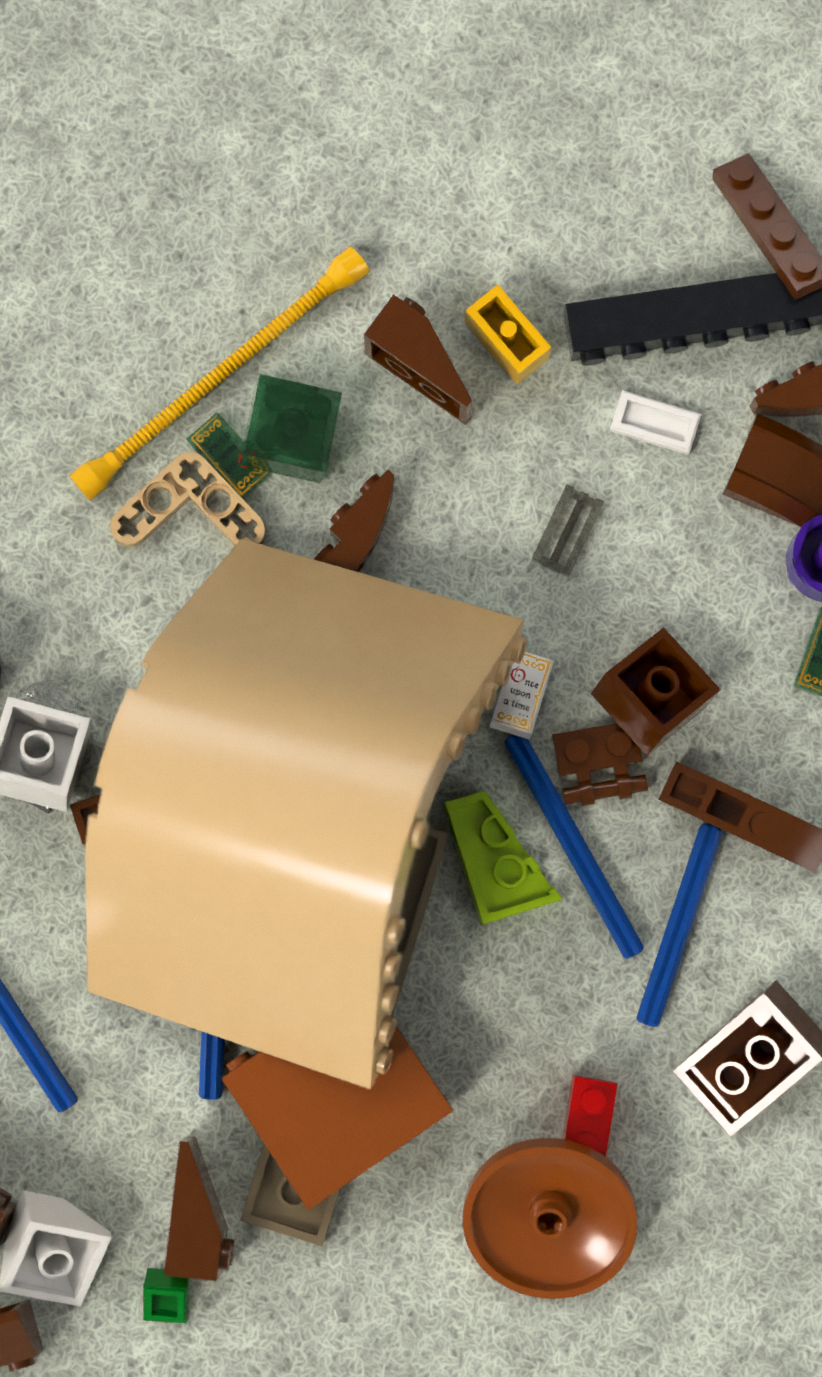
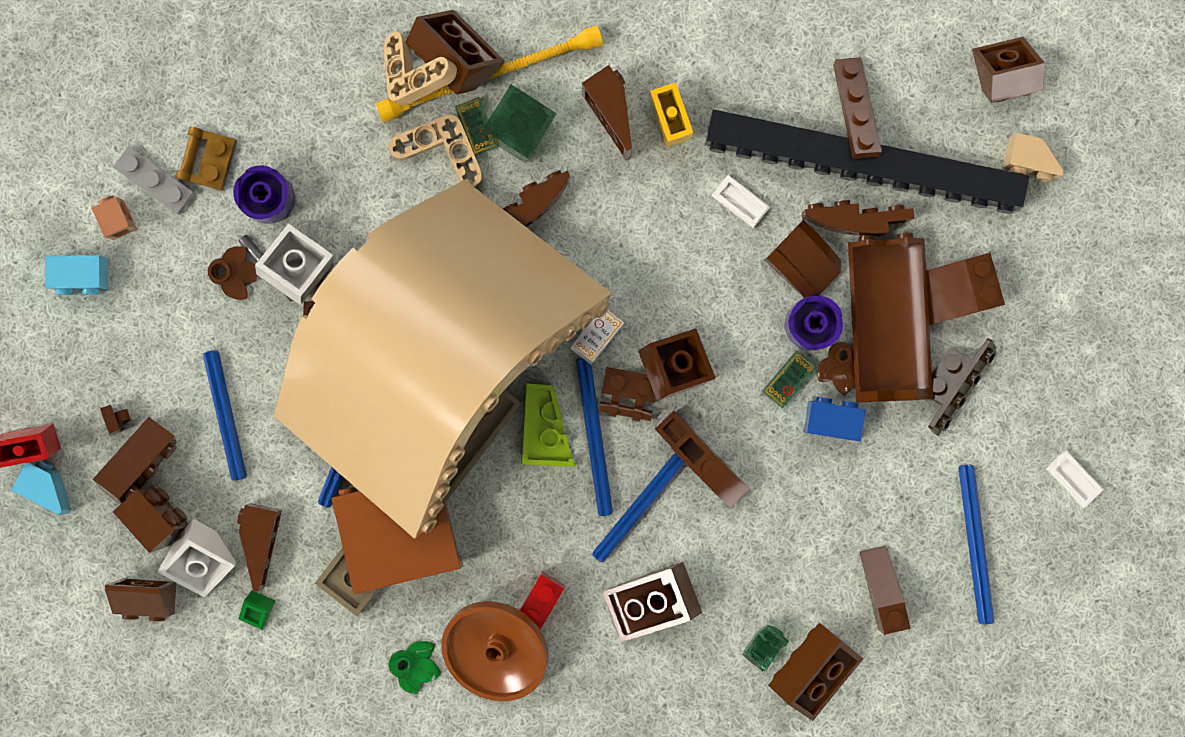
camera: 20 degrees right, 5 degrees up
(109, 421) = (403, 87): none -> tan beam
(129, 1180) = (258, 536): none -> reddish brown slope
(156, 359) = (451, 37): none -> reddish brown slope
(197, 1225) = (287, 577): reddish brown slope -> none
(442, 1290) = (418, 667): none -> green plate
(582, 499) = (678, 232): clear smoke tile -> none

